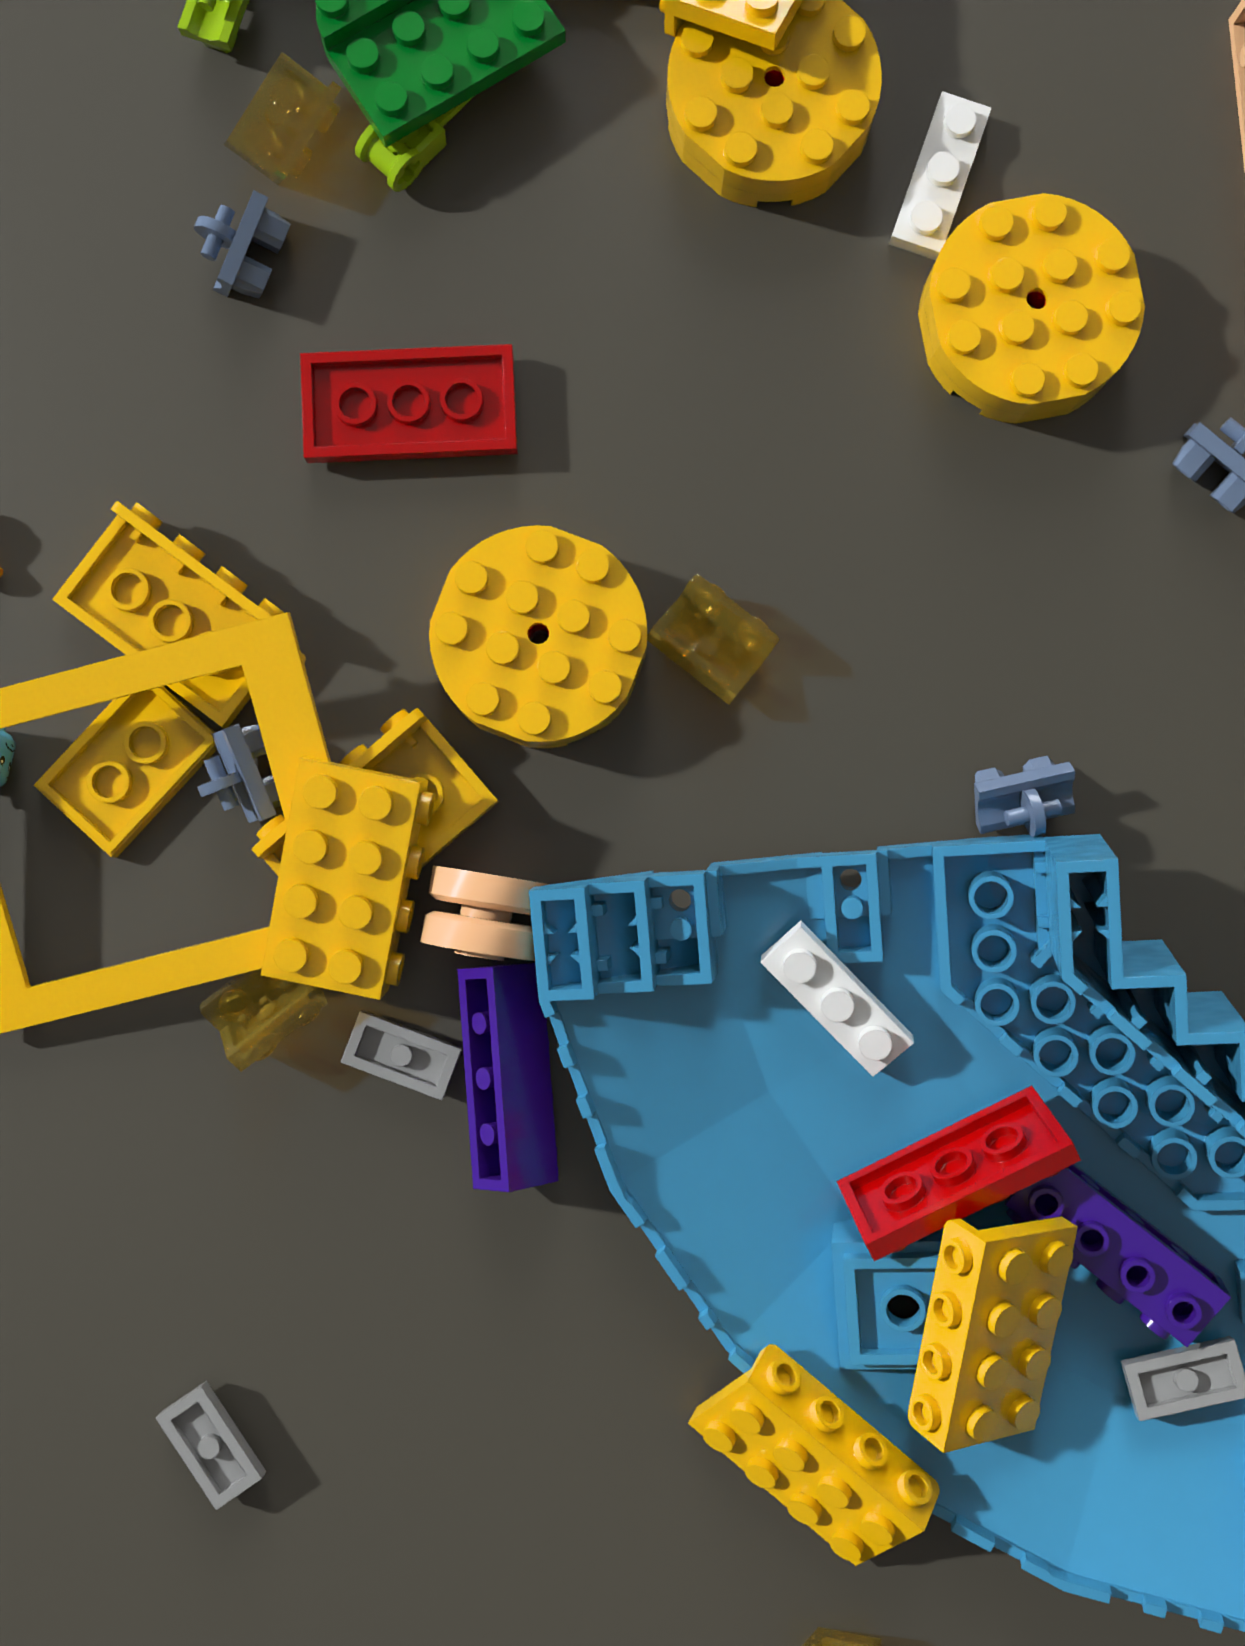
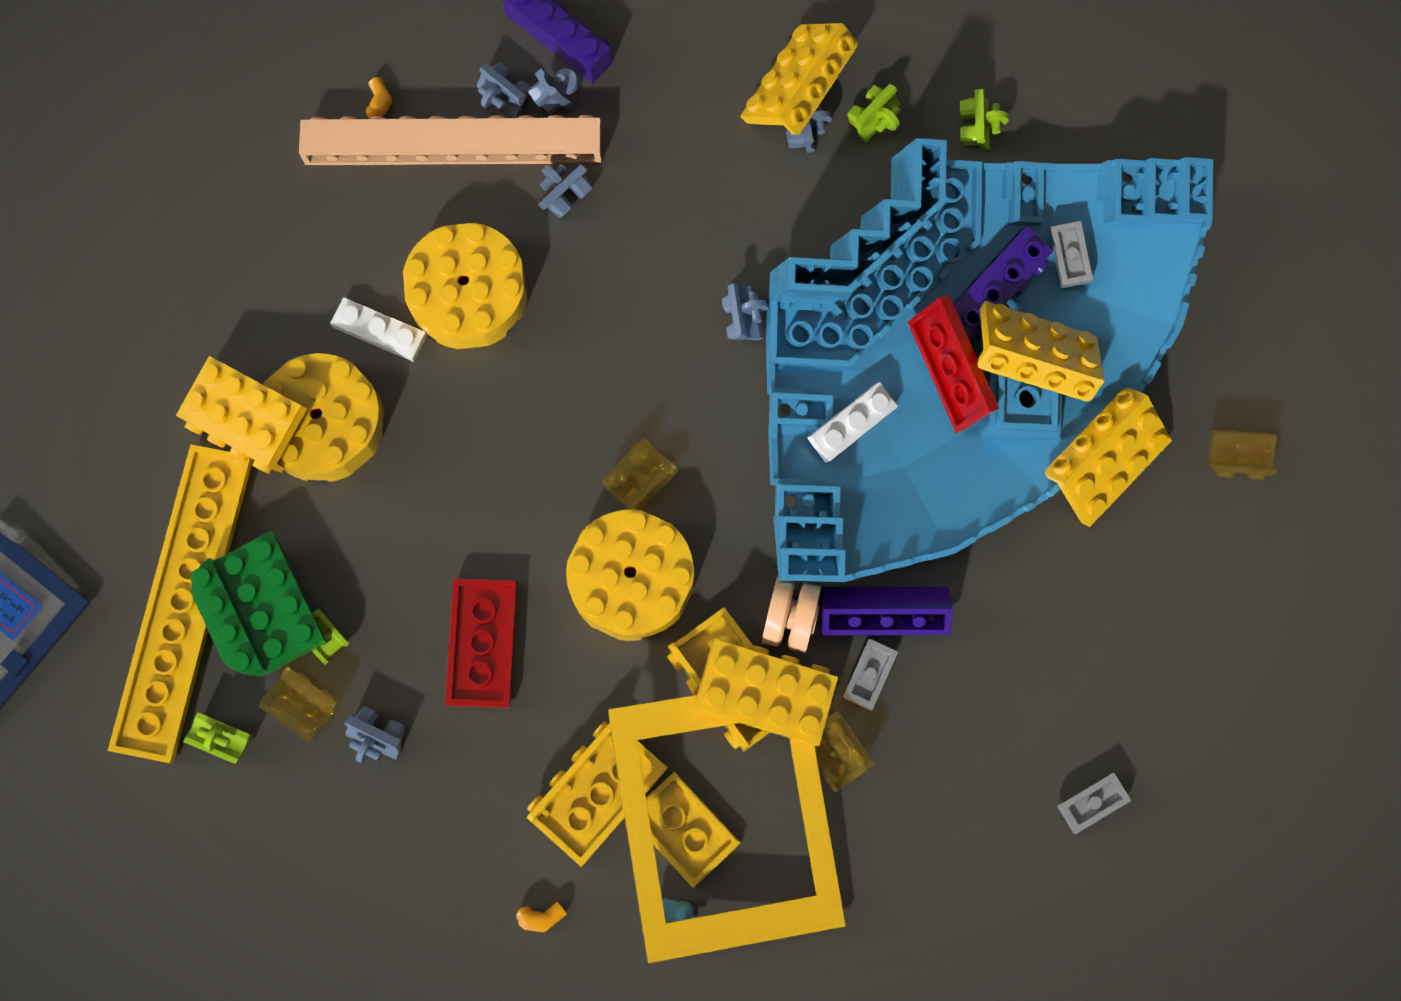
camera: 85 degrees left, 10 degrees down
(237, 750) = (696, 757): sand blue hips -> none

